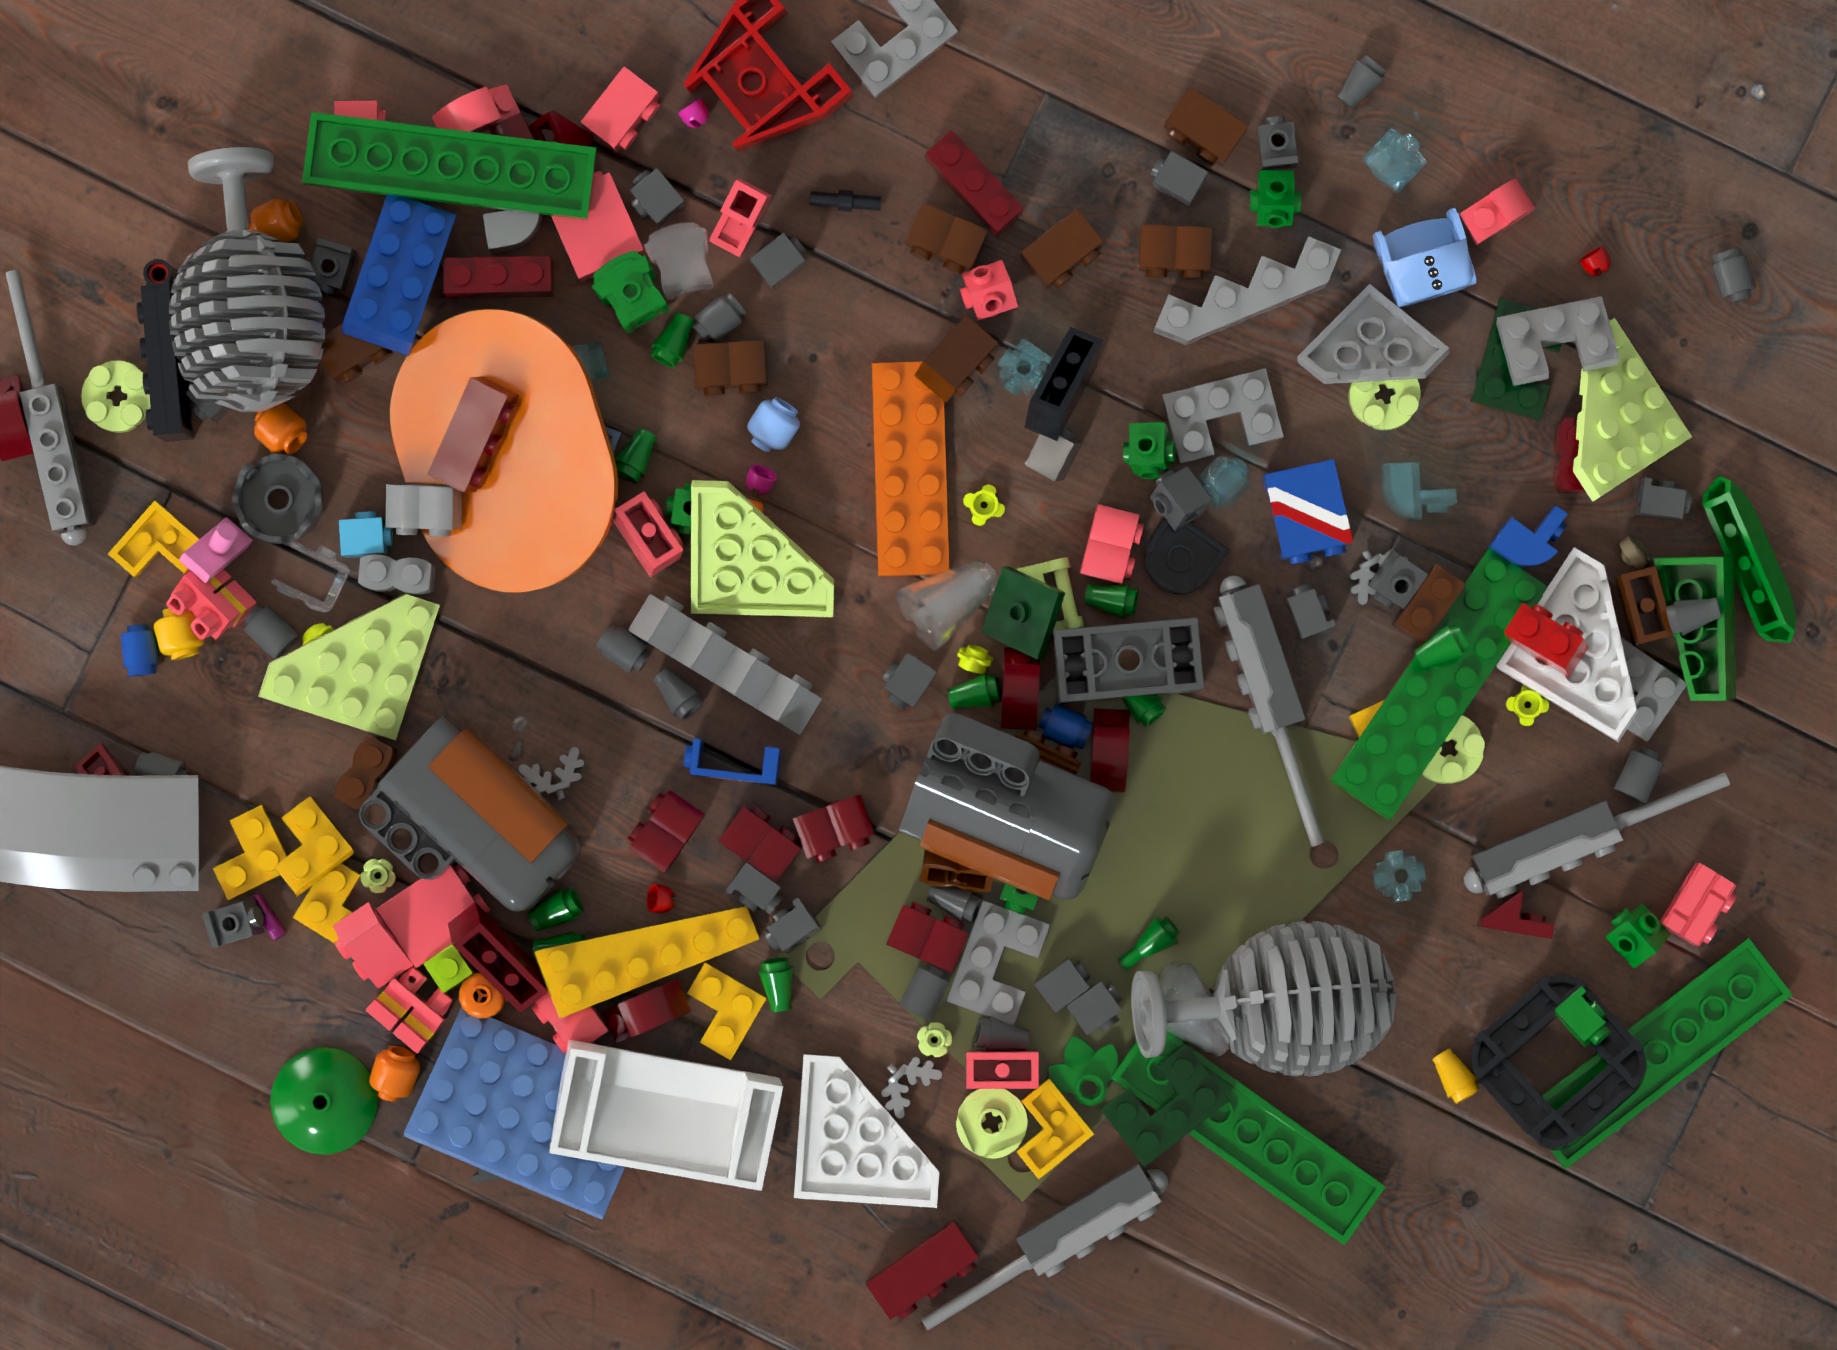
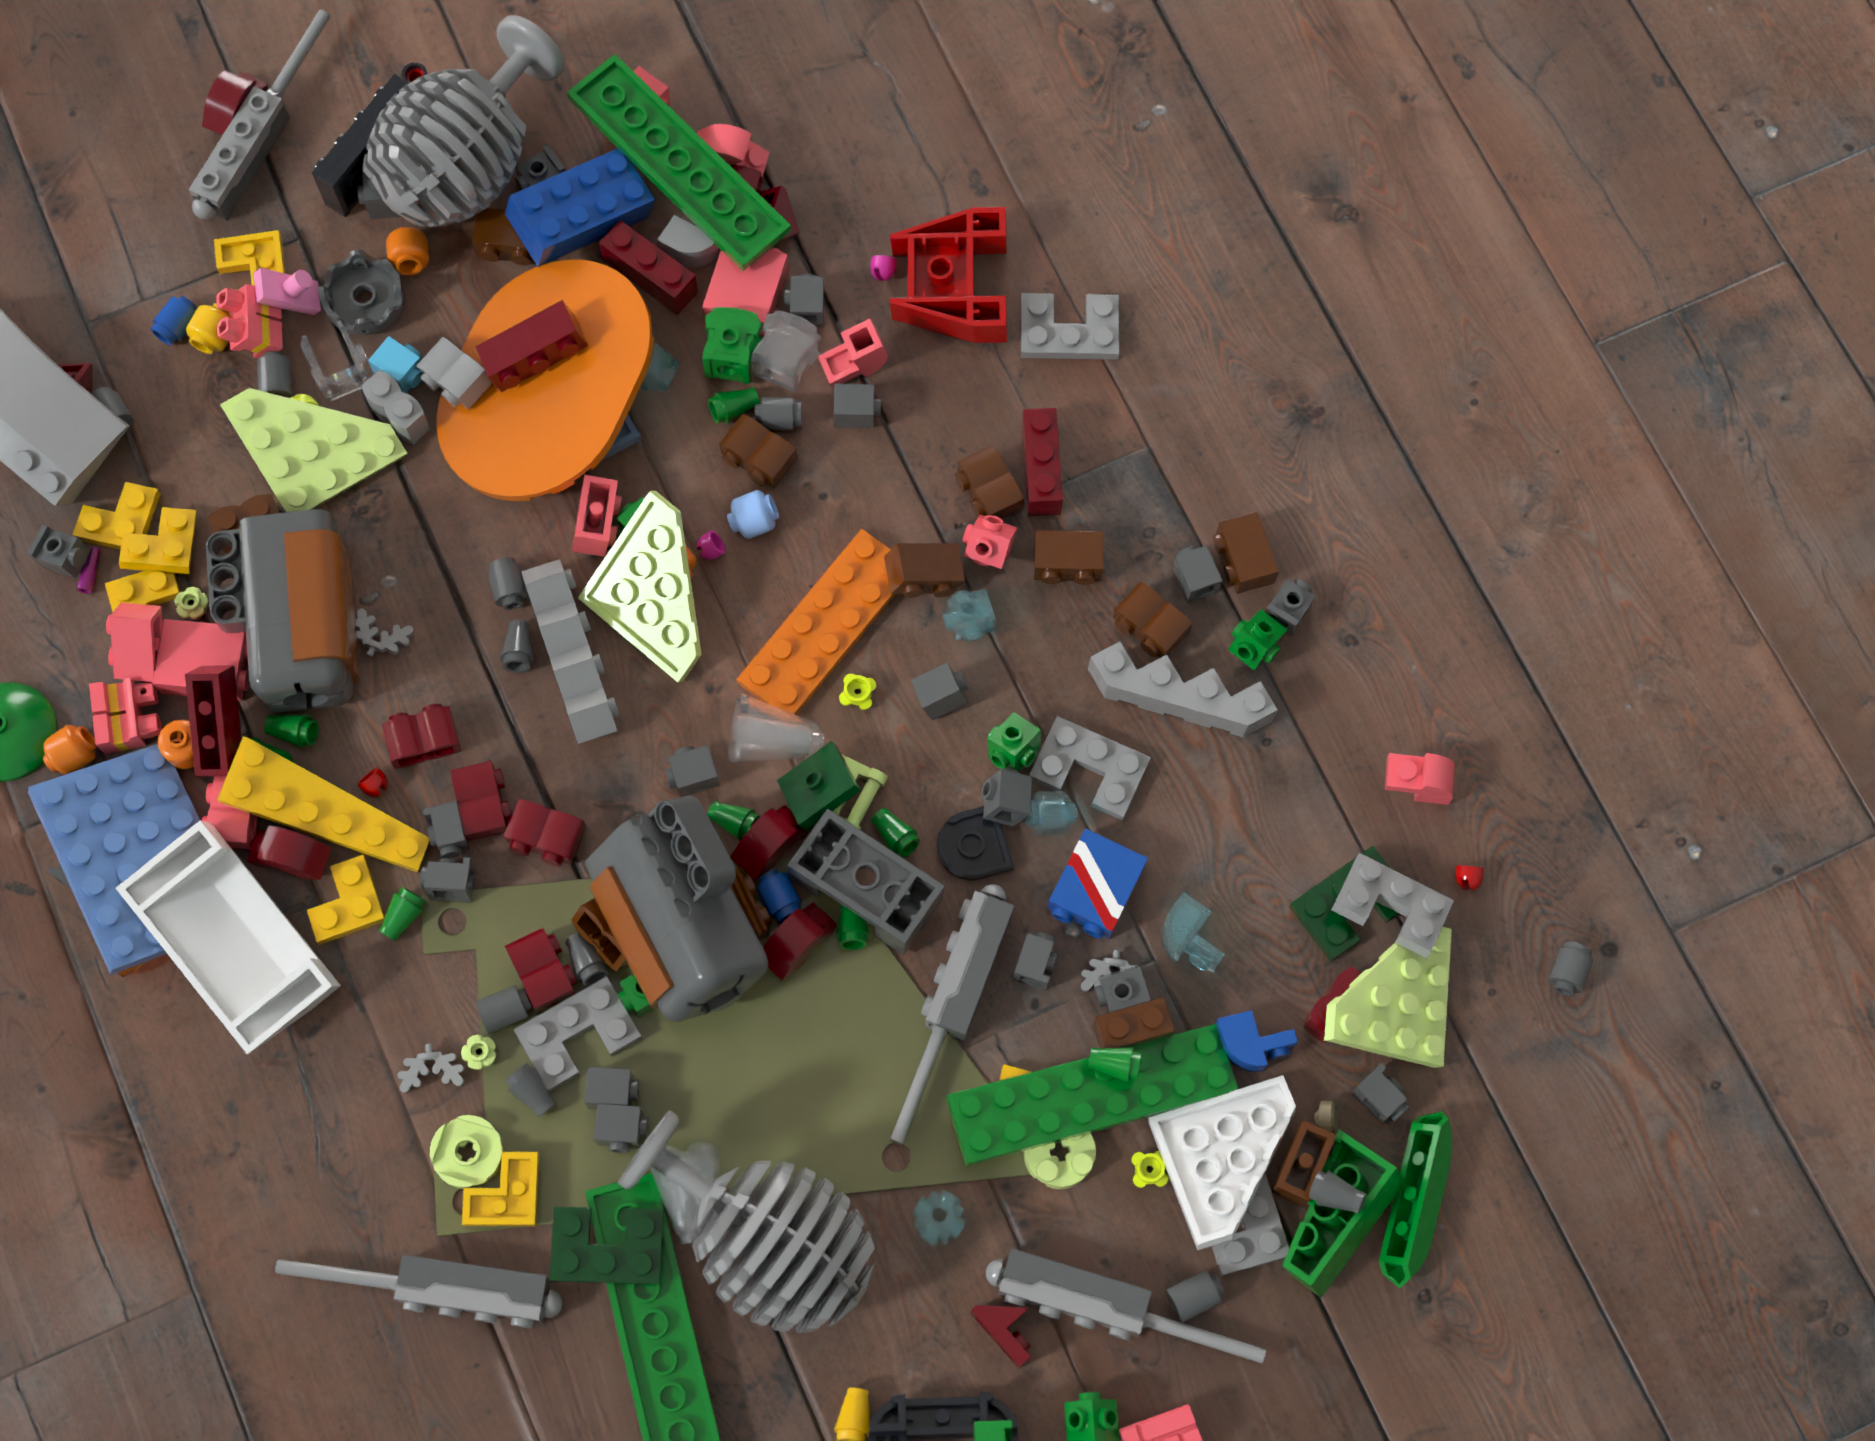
camera: 30 degrees right, 15 degrees down
(101, 409) = (308, 136): yellowish green plate -> none
(277, 219) = (536, 116): orange head -> none
(449, 968) = (171, 703): lime brick -> none
(621, 110) = (832, 225): coral brick -> none
(635, 456) = (635, 460): green cone -> none
(770, 770) = (533, 747): blue panel -> none
(845, 200) = (939, 406): black bar -> none
(853, 1145) = (349, 1082): white plate -> none
(923, 1271) = (313, 1223): dark red brick -> none
(974, 659) = (754, 794): neon yellow plate -> none
(1002, 1070) = (507, 1113): coral brick -> none
(1063, 384) = (987, 642): black brick -> none
(1084, 1065) = (571, 1166): green plate -> none
(1110, 544) = (927, 791): coral brick -> none
(1156, 938) = (712, 1112): green cone -> none
(1361, 81) = (1391, 610): dark grey cone -> none
(1372, 343) = (1247, 798): light grey plate -> none
(1380, 415) = (1208, 855): yellowish green plate -> none
(1395, 159) = (1371, 681): clear light blue brick -> none
(1425, 259) = (1336, 774): light blue piece -> none
(1546, 639) = (1204, 1123): red brick -> none

